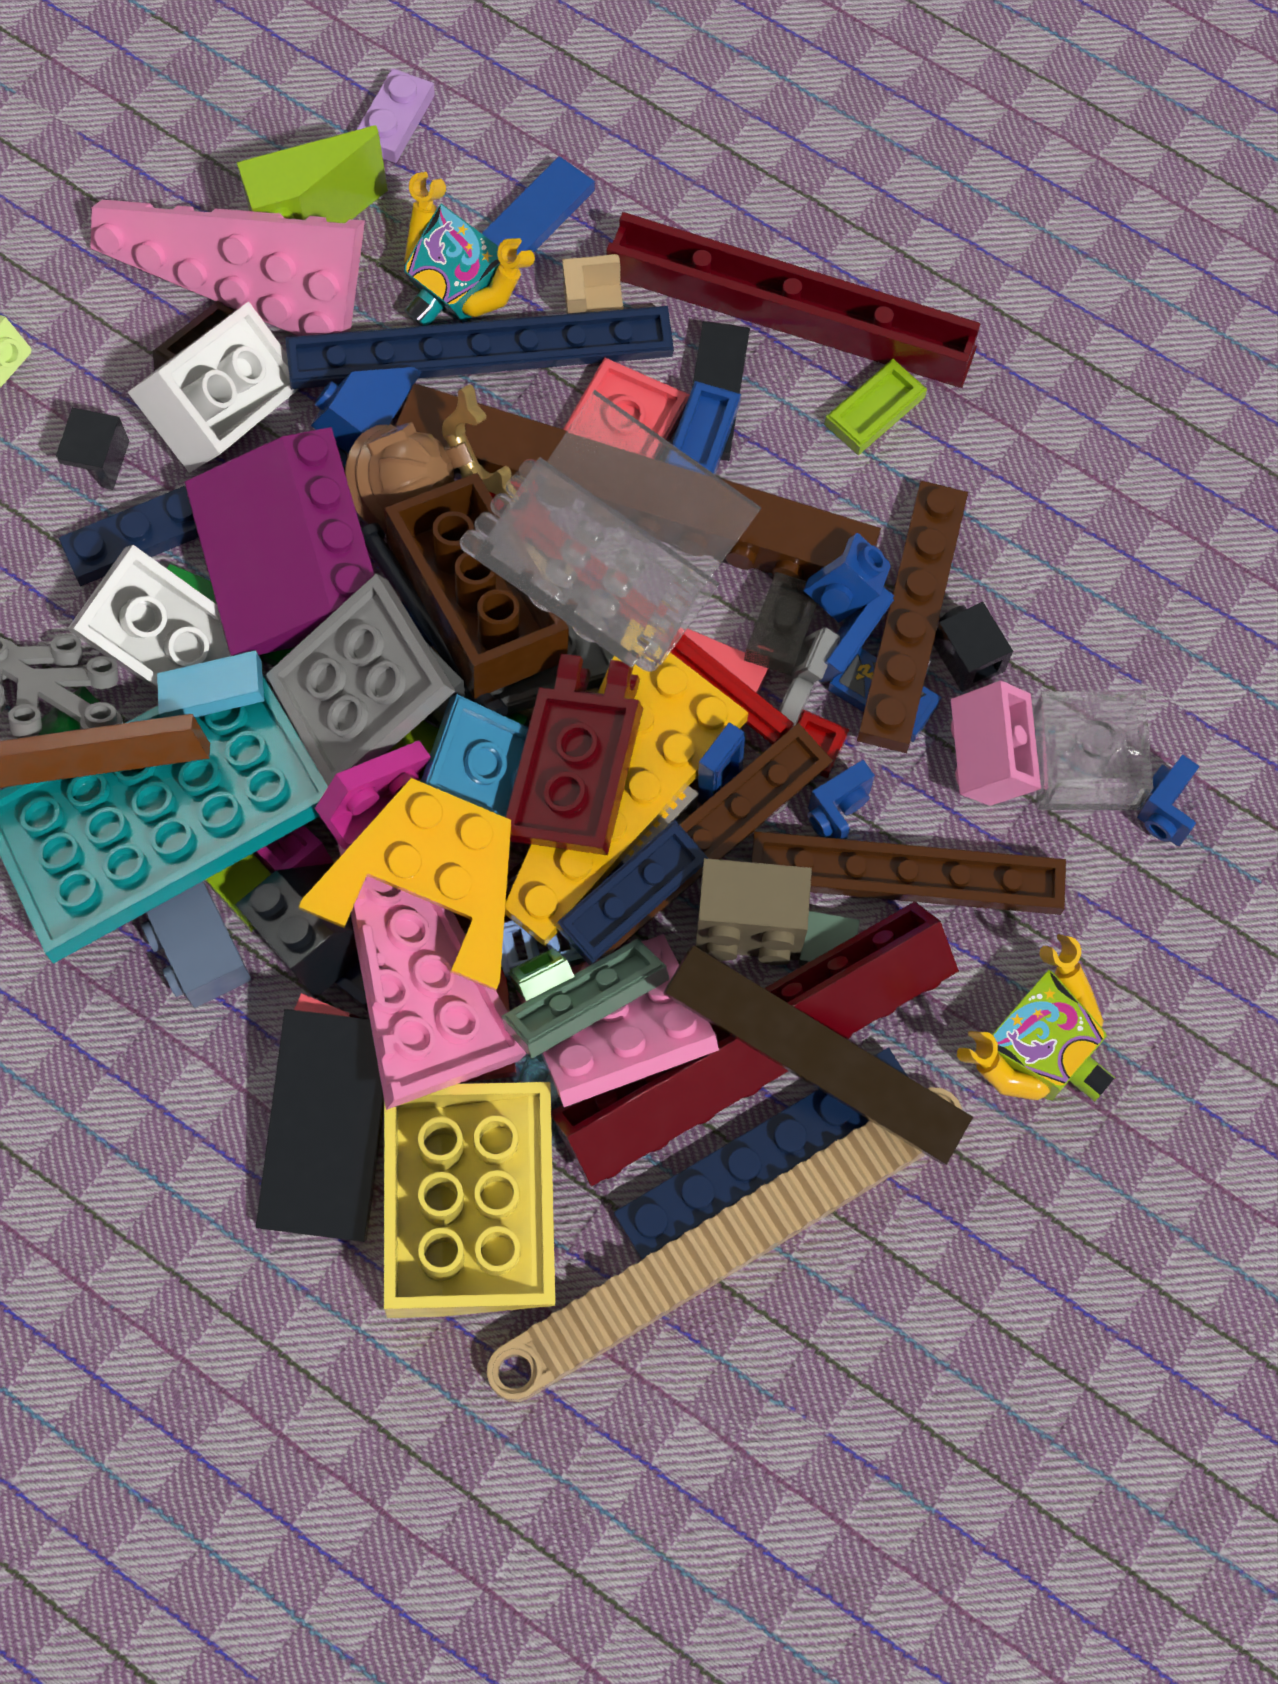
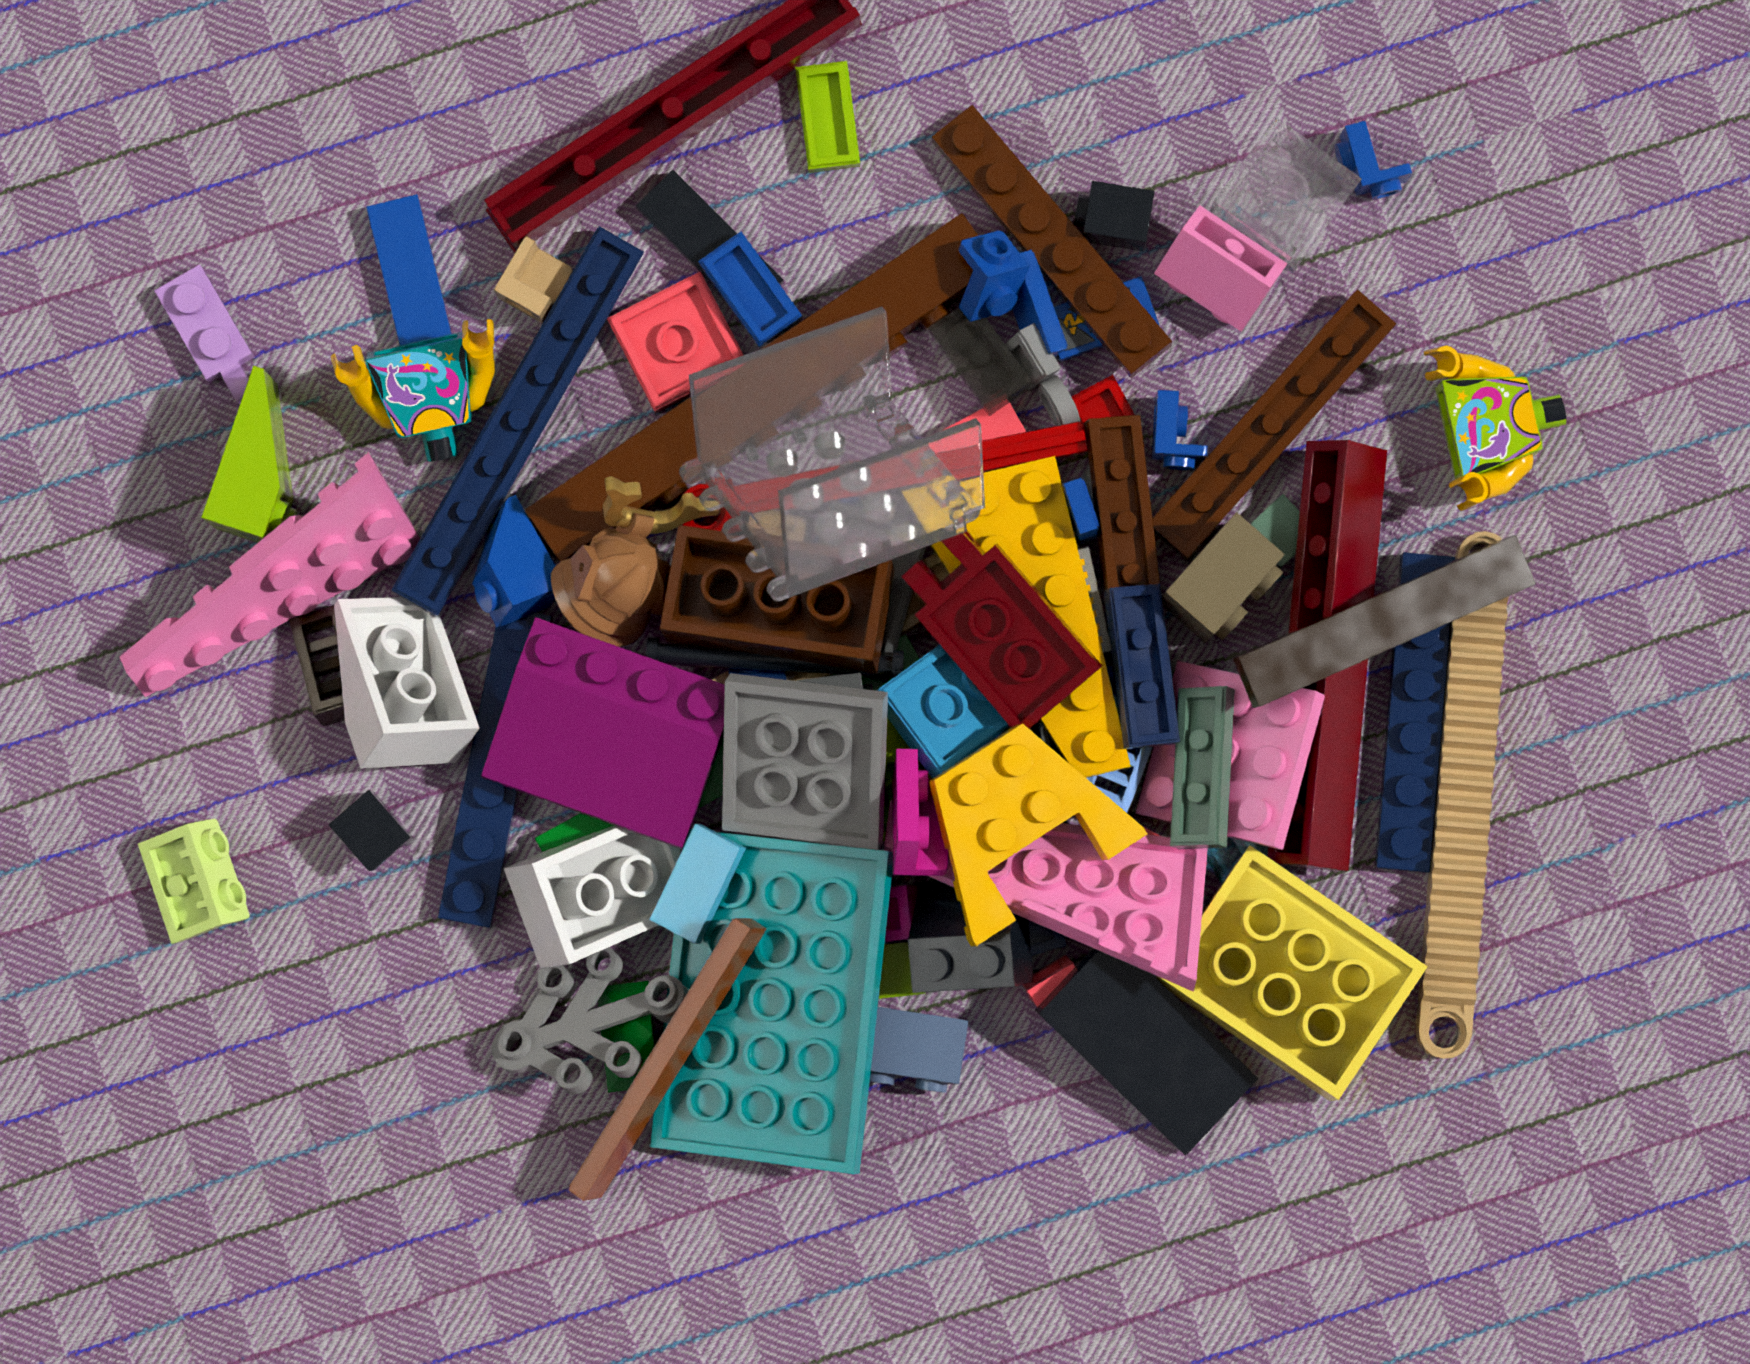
camera: 55 degrees left, 15 degrees up
(540, 974) = (1153, 788): tile -> none

